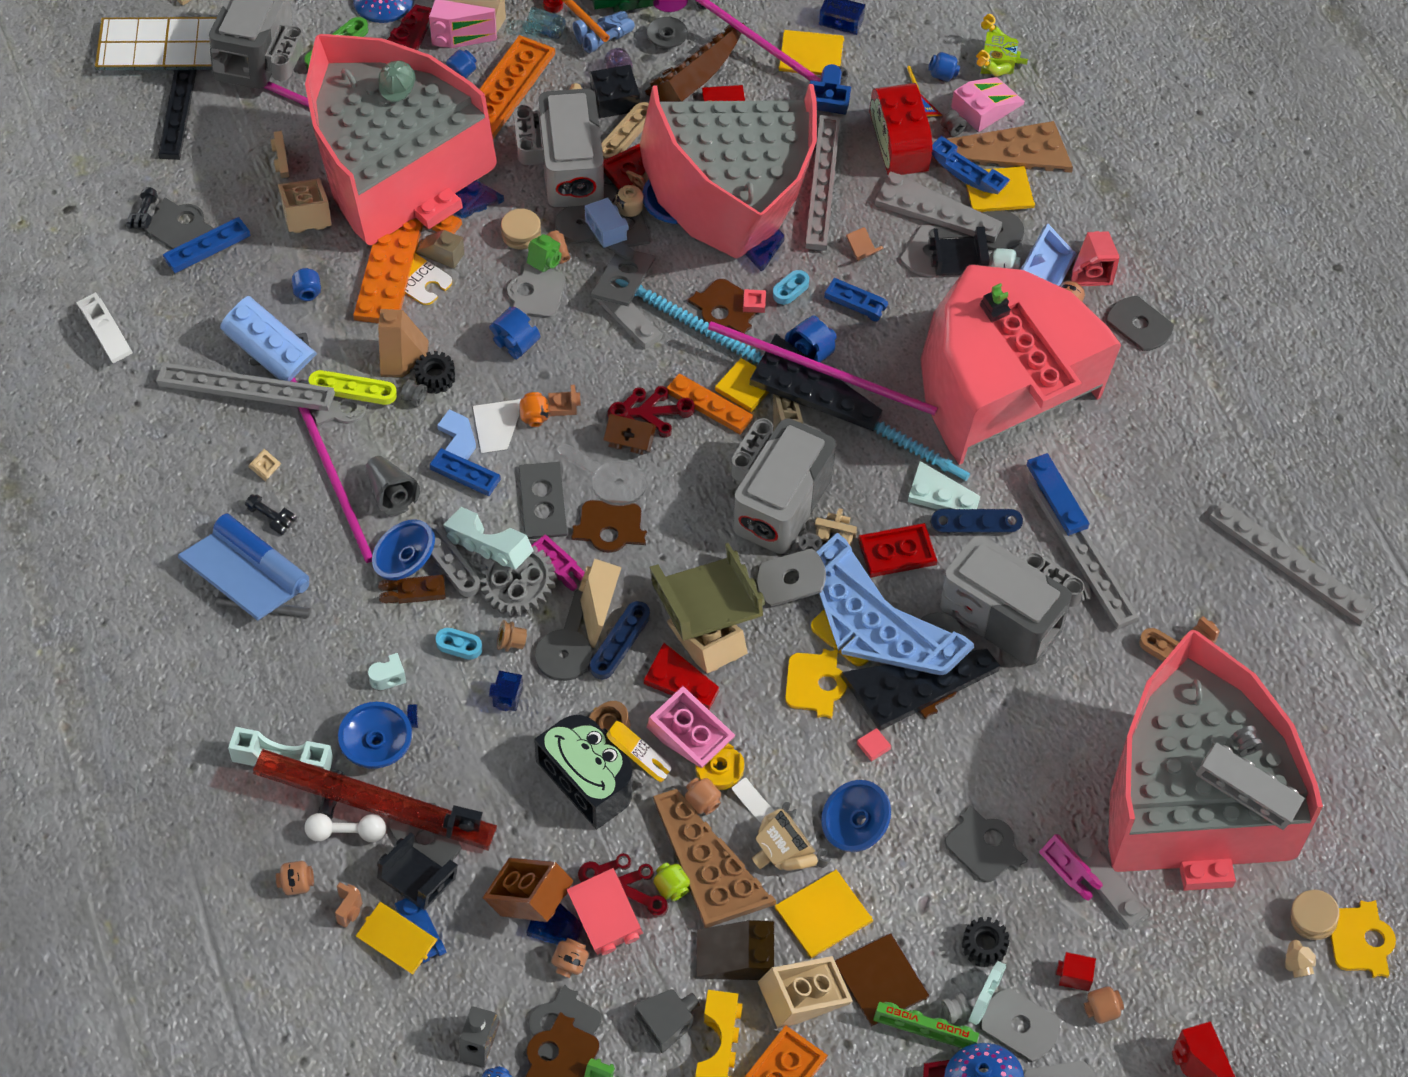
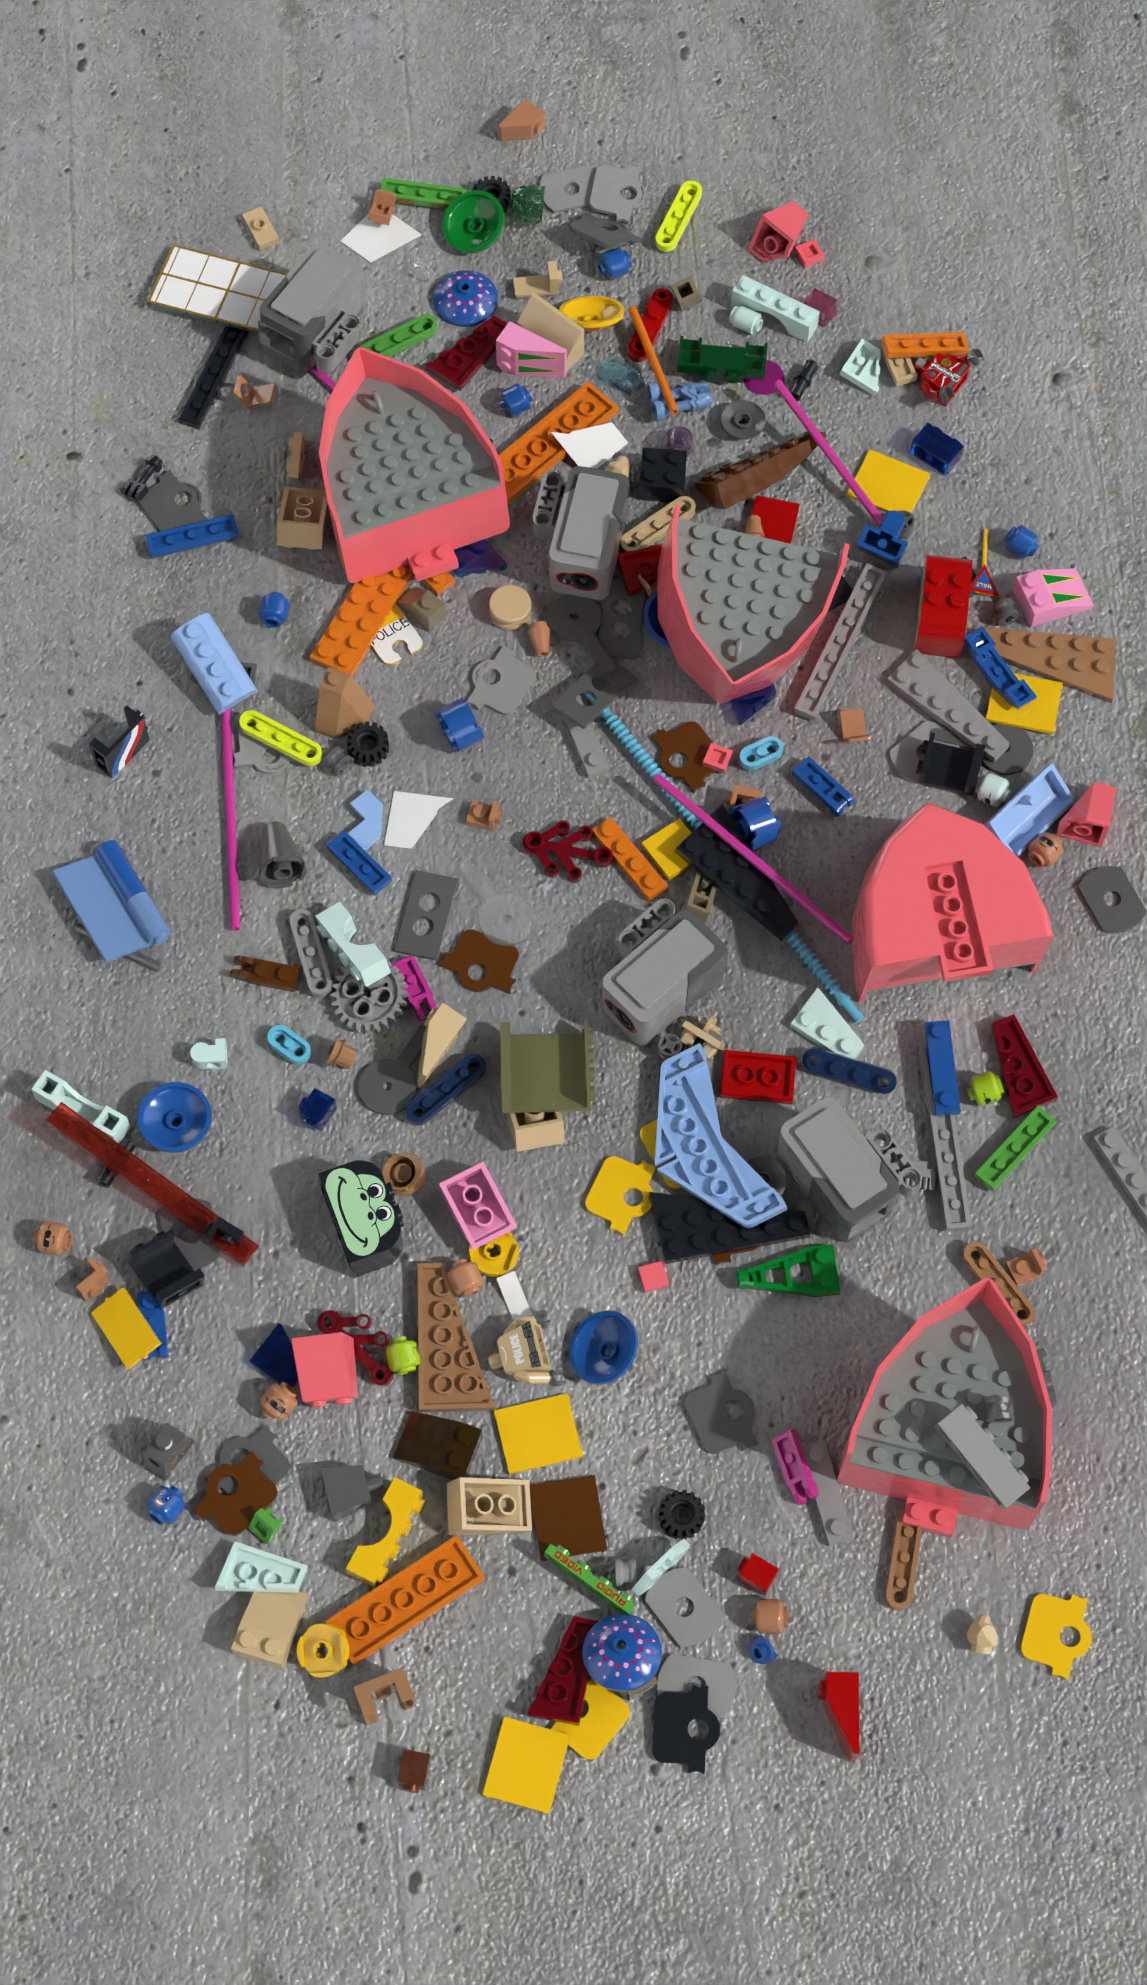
camera: 20 degrees right, 10 degrees up
(104, 327) = (62, 601): white slope -> none
(199, 444) = (113, 759): none -> black panel
(224, 118) = (254, 396): none -> nougat bracket
(245, 386) = (177, 707): light grey plate -> none
(254, 503) = (145, 835): black hinge -> none
(264, 465) = (168, 796): tan tile -> none
(370, 828) = (139, 1210): white piece -> none
(396, 81) = (421, 422): sand green piece -> none
(403, 549) = (268, 931): blue dish -> none
(412, 714) = (219, 1107): clear blue tile -> none
(528, 889) = (260, 1323): dark orange brick -> none
(534, 409) = (451, 814): orange head -> none
(543, 253) = (521, 643): bright green brick -> none
(546, 78) = (592, 445): none -> white sticker
(606, 222) = (596, 626): light blue brick -> none
(618, 426) = (547, 871): reddish brown brick -> none
(629, 200) = (629, 608): tan head -> none
(638, 751) = (416, 1214): yellow piece -> none
(672, 672) = (488, 1144): red wing -> none
(788, 322) = (741, 795): none -> nougat bracket
(810, 582) = (656, 1083): light grey piece -> none
(995, 304) = (934, 858): black piece -> none
(999, 51) = (1088, 540): lime torso -> none
(1021, 691) = (823, 1271): none -> green plate
(1101, 501) = (985, 1088): none -> lime head
(1108, 1038) = (762, 1651): none -> blue plate
(1127, 481) = (1022, 1072): none -> dark red wing
(1147, 543) = (1015, 1148): none -> bright green plate
(1202, 922) = (903, 1564): none -> medium nougat plate
(1314, 914) = (1017, 1594): tan head -> none

